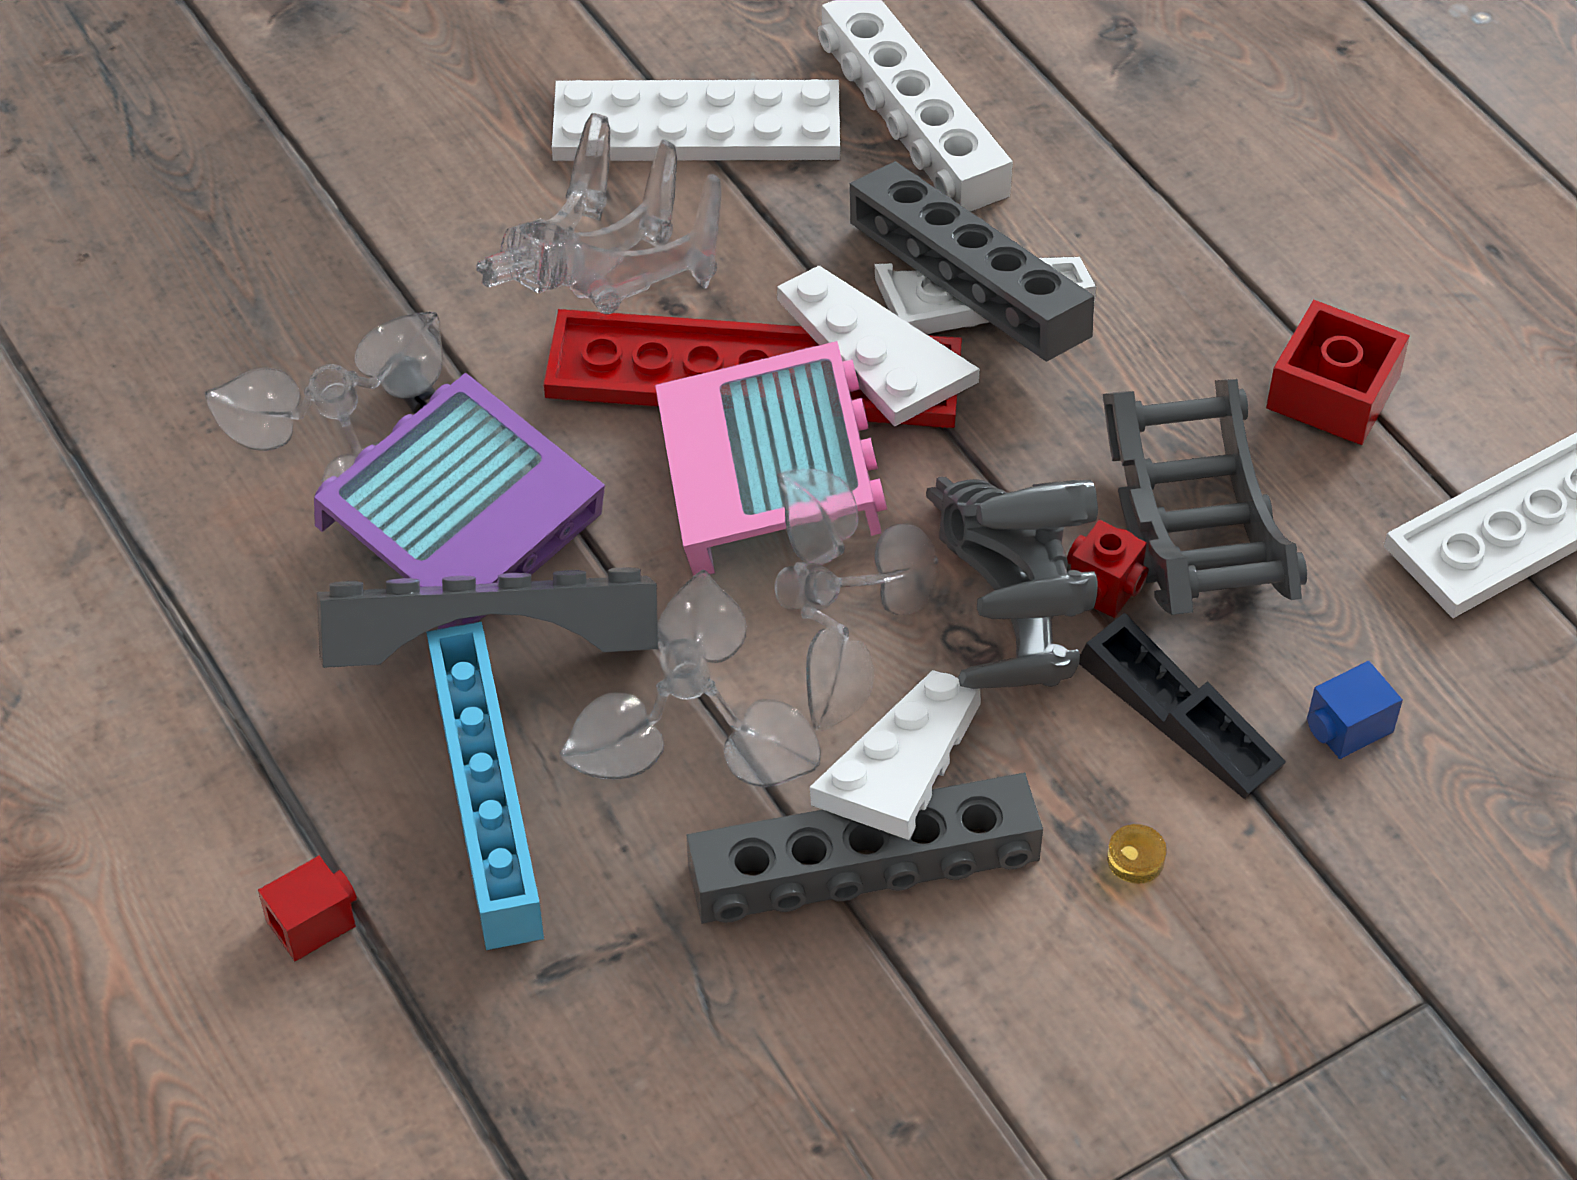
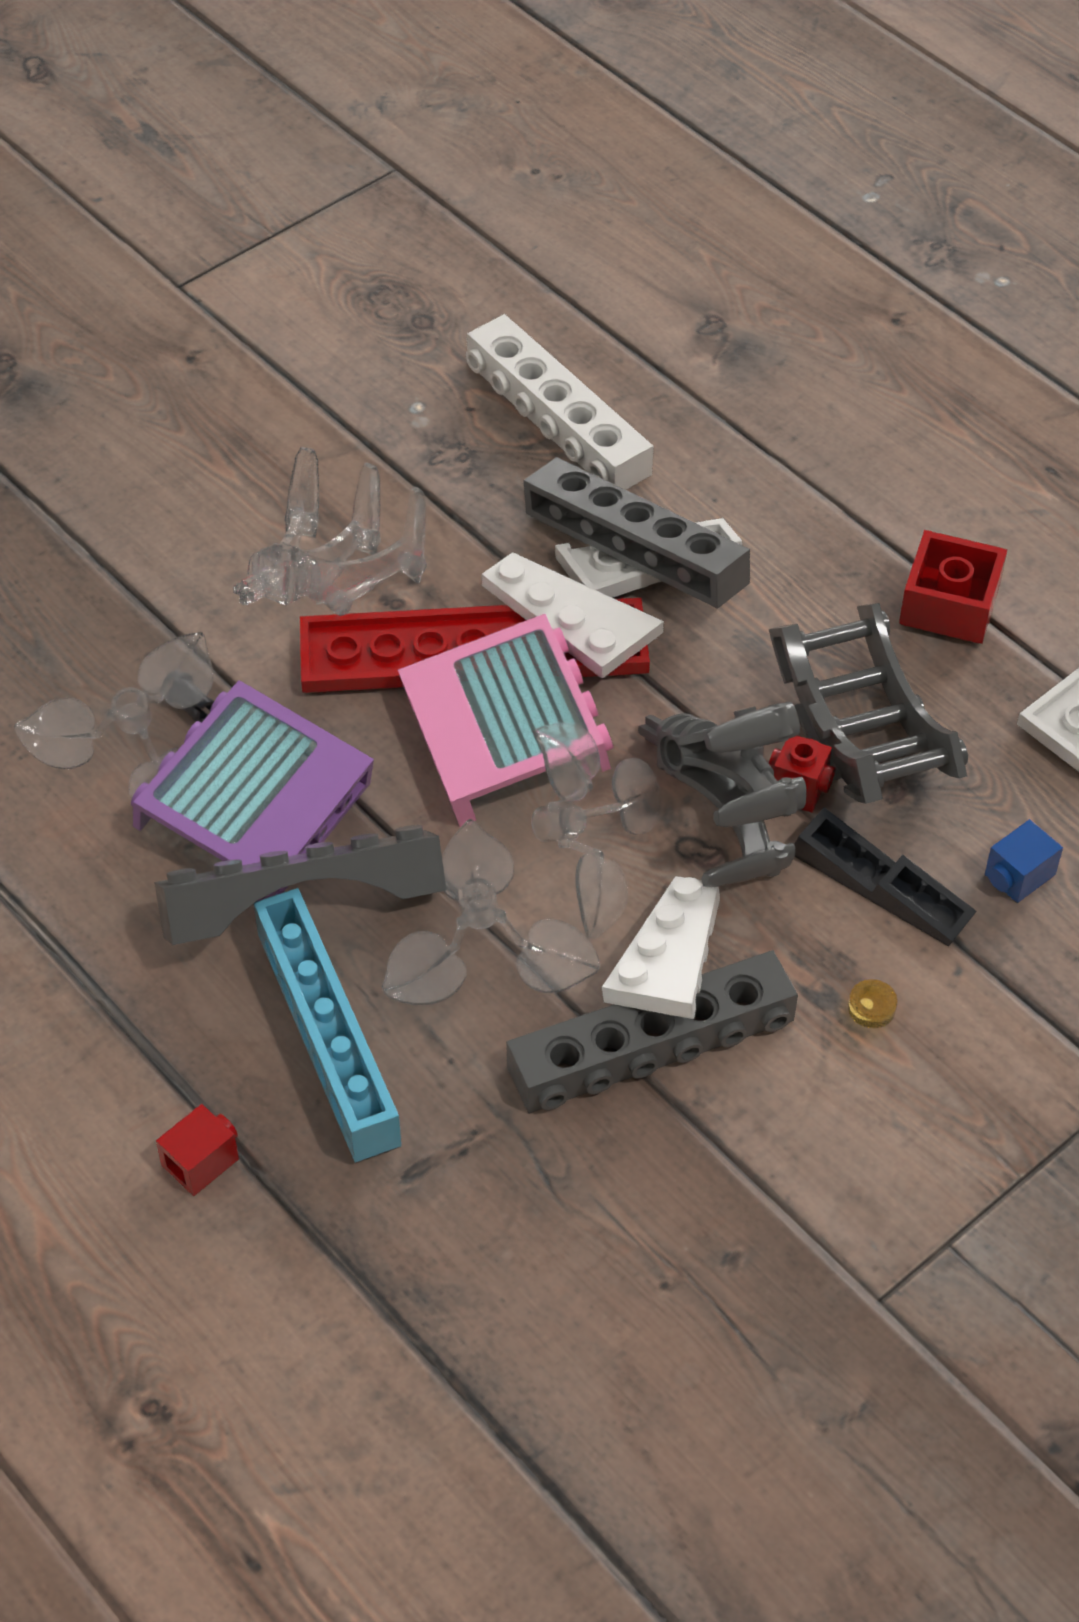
camera: 10 degrees left, 0 degrees up
(703, 118) = (392, 438): white plate -> none

